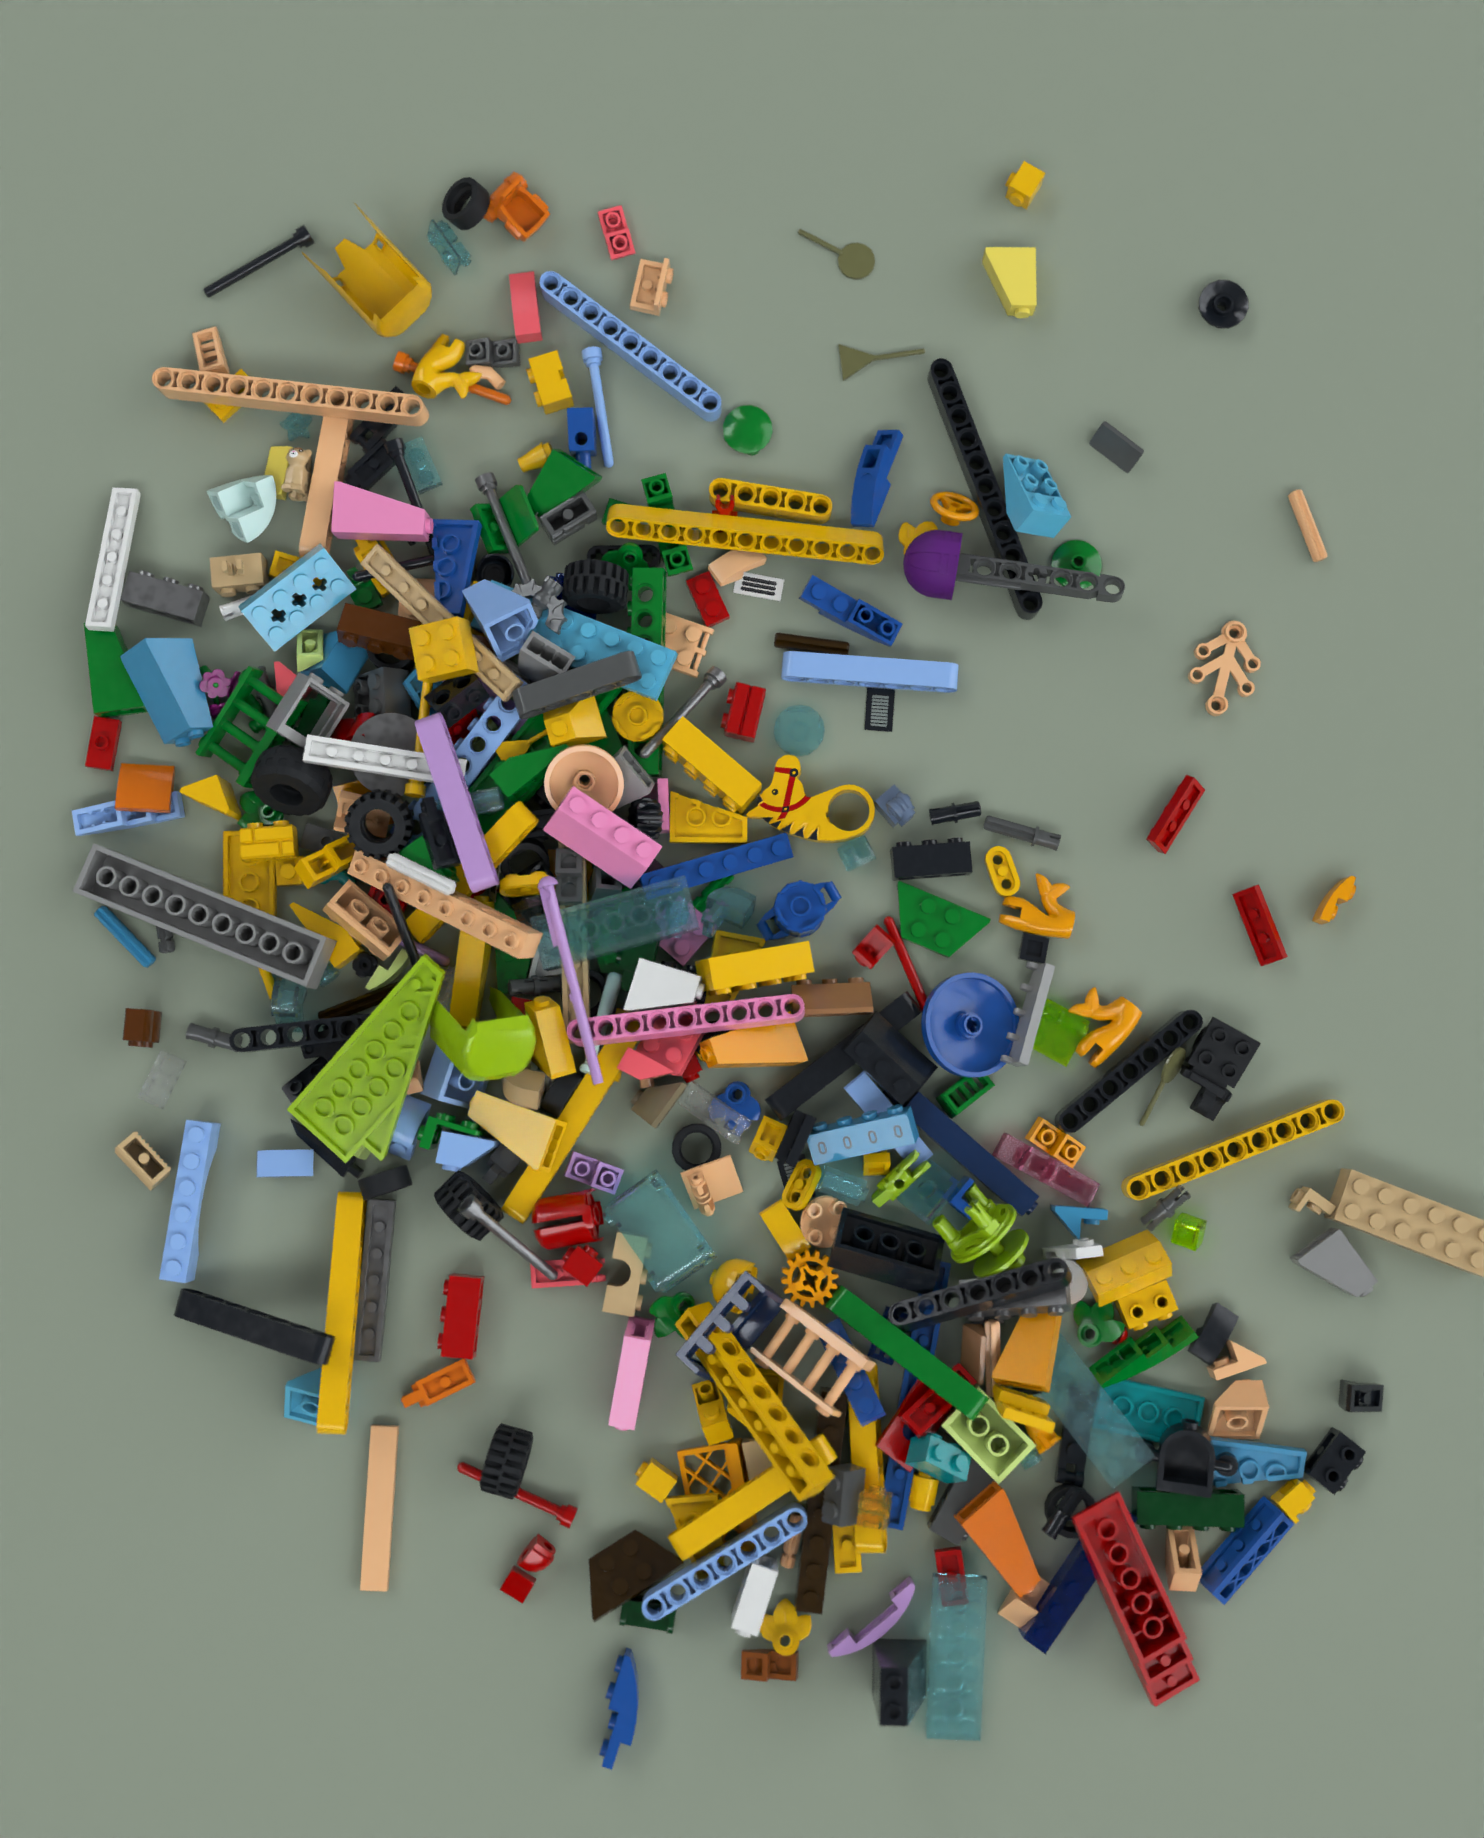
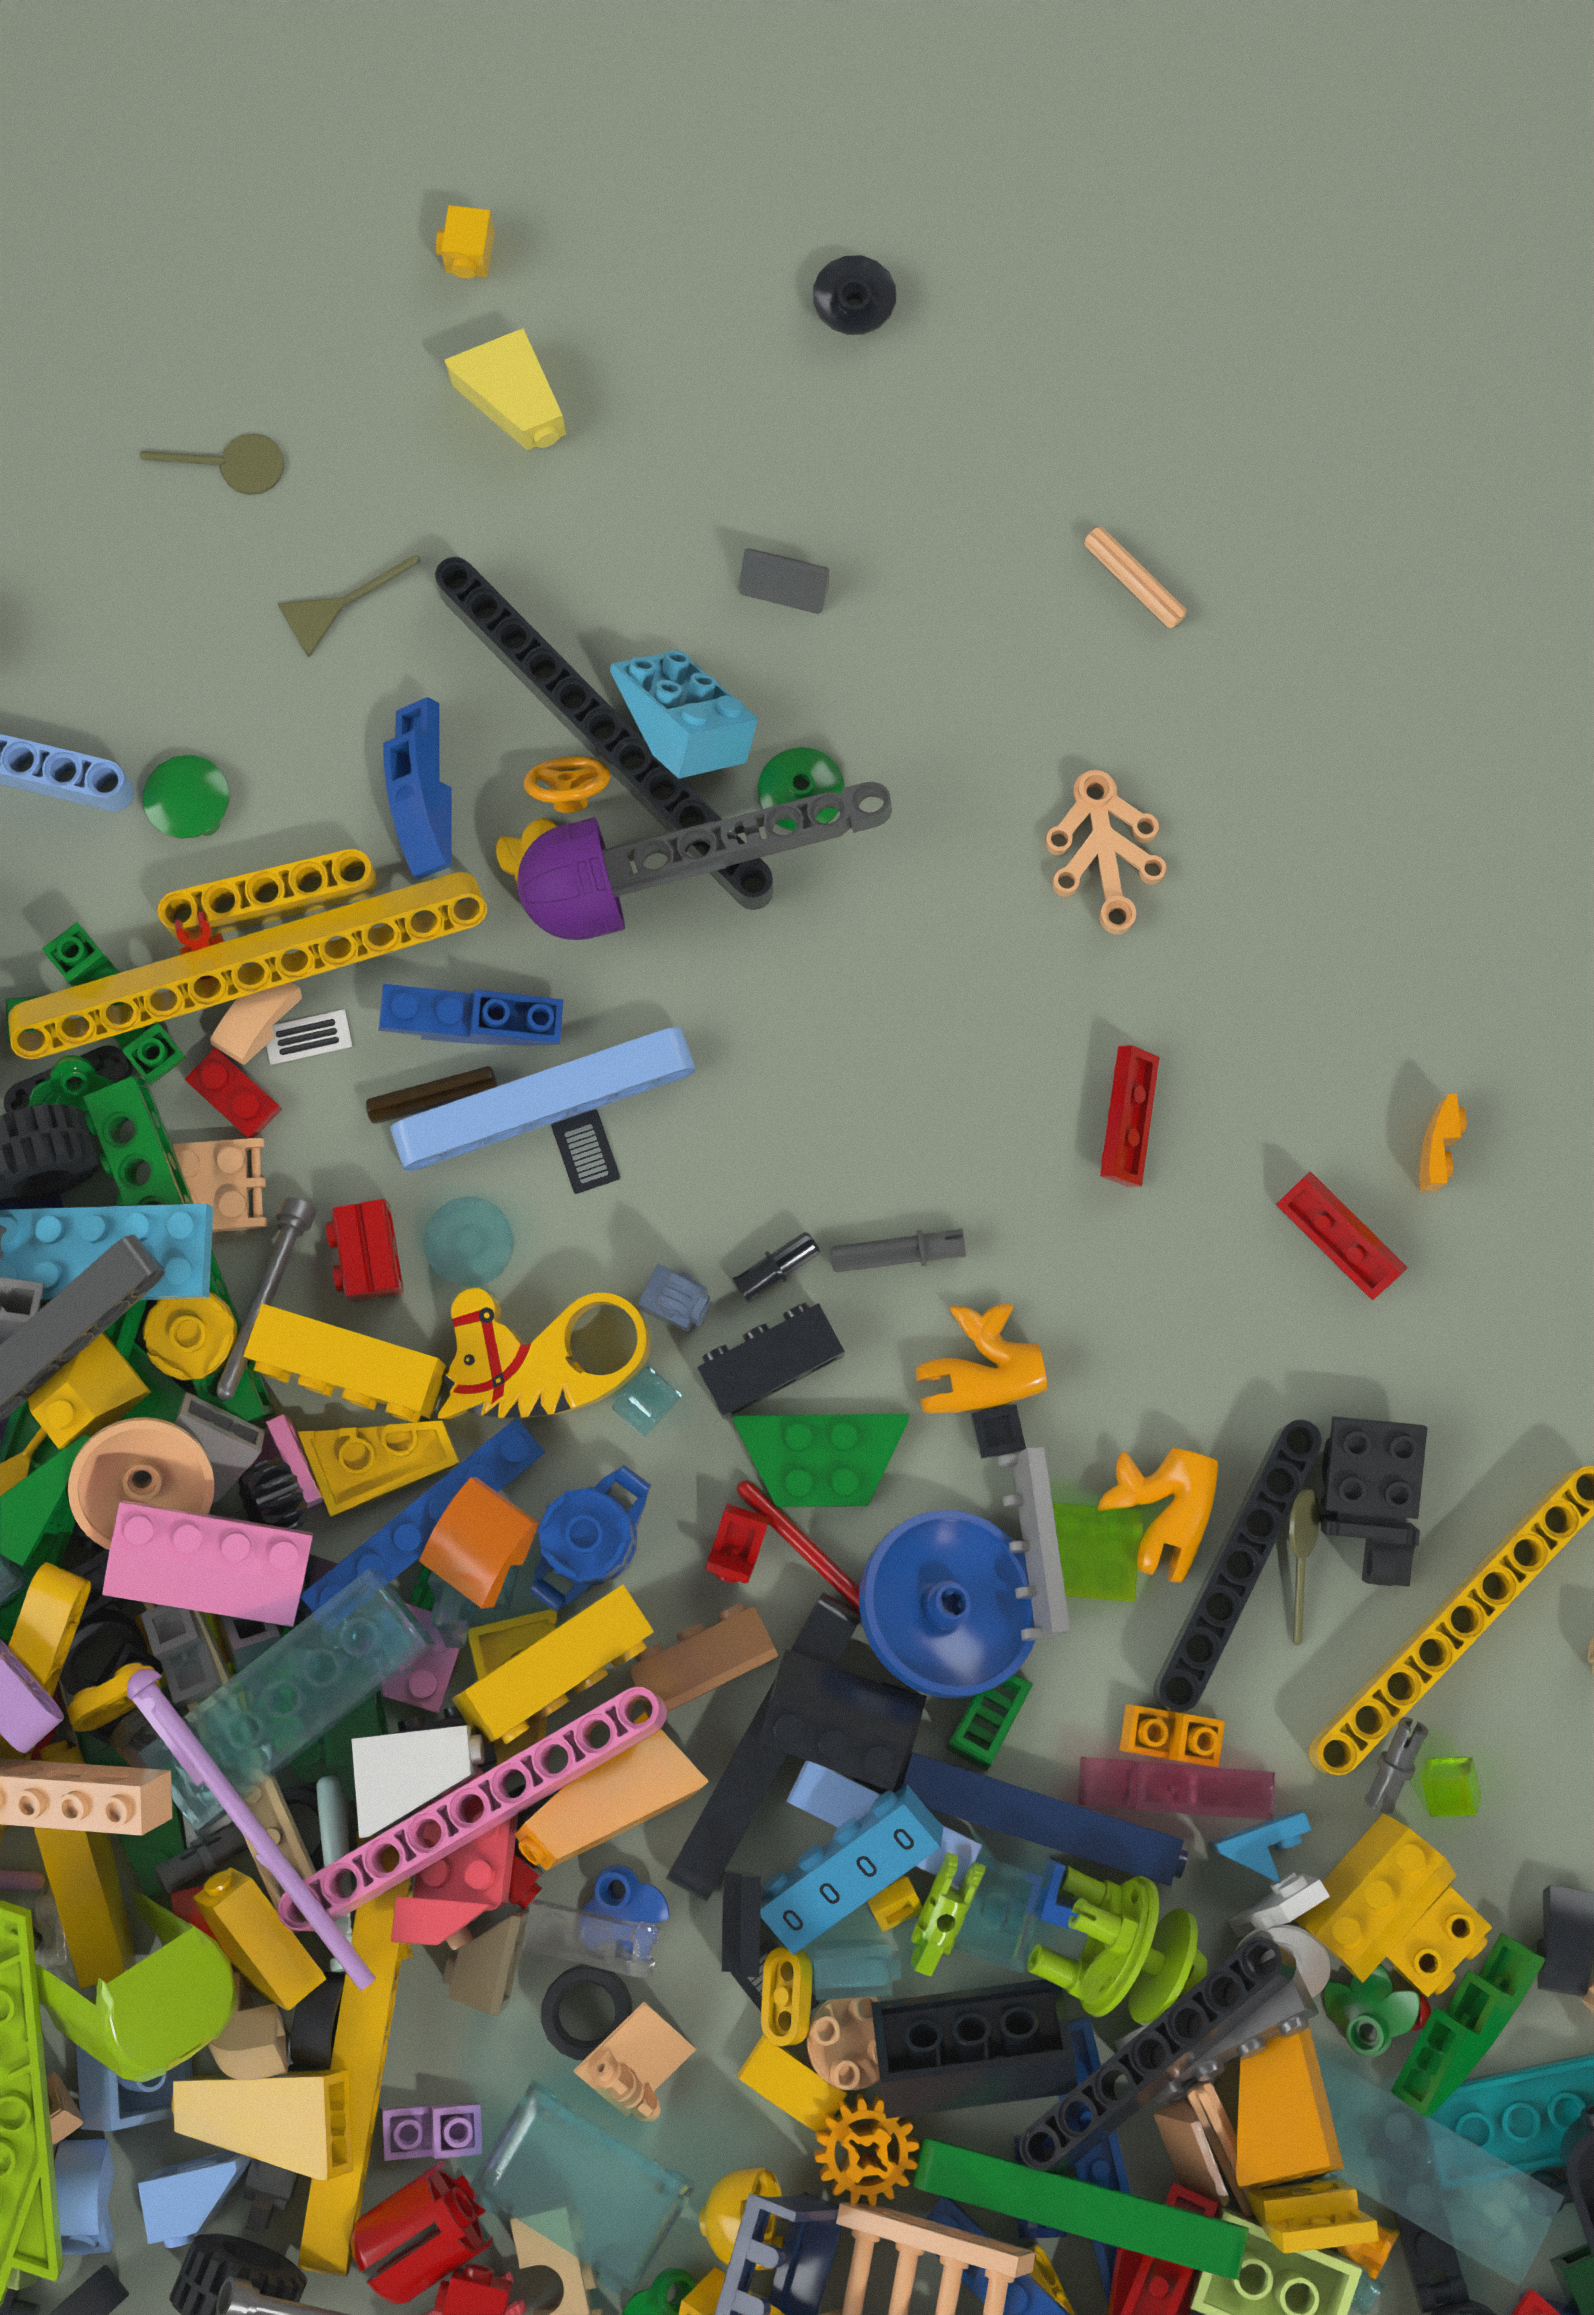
camera: 20 degrees left, 5 degrees down
(430, 1132) = (120, 2193): green bracket -> none
(743, 887) = (479, 1542): none -> orange slope
(767, 1139) = (698, 1942): yellow bracket -> none
(1003, 871) = (893, 1328): yellow plate -> none

